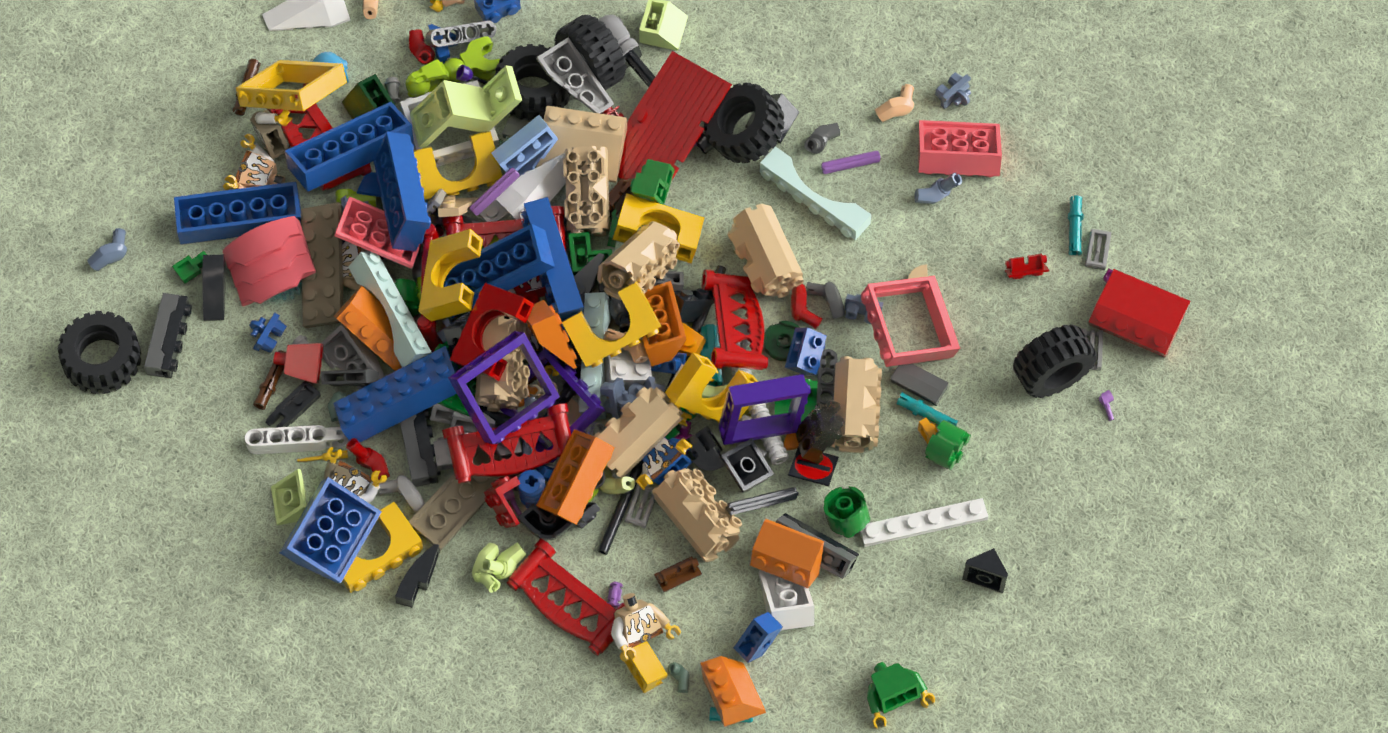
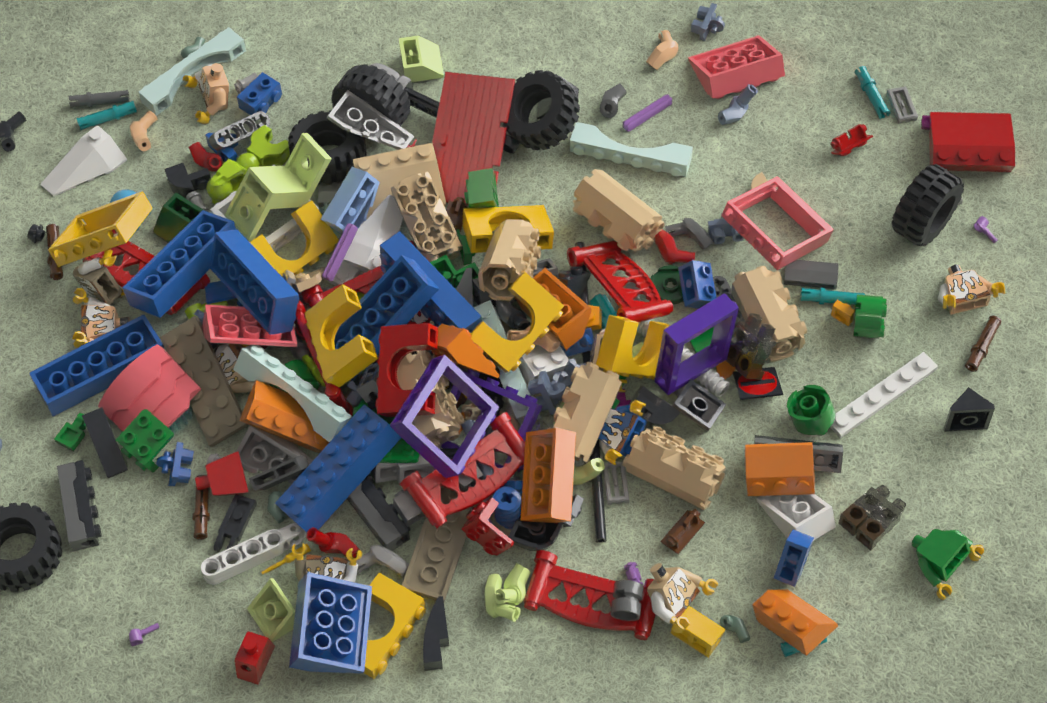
camera: 20 degrees left, 5 degrees down
(167, 471) = (135, 635): none -> medium lavender hand
(238, 62) = (36, 233): none -> black plate
(247, 299) = (145, 439): none -> green bracket
(257, 530) = (255, 654): none -> red torso
(390, 65) = (184, 183): none -> black brick
(464, 74) = (262, 161): dark purple hinge -> none
(594, 612) = (627, 599): none -> dark grey wheel
(762, 501) = (729, 432): axle -> none
(852, 629) = (872, 516): none -> hips
(1035, 517) = (980, 349): none -> reddish brown pin
(1052, 456) = (966, 290): none -> torso

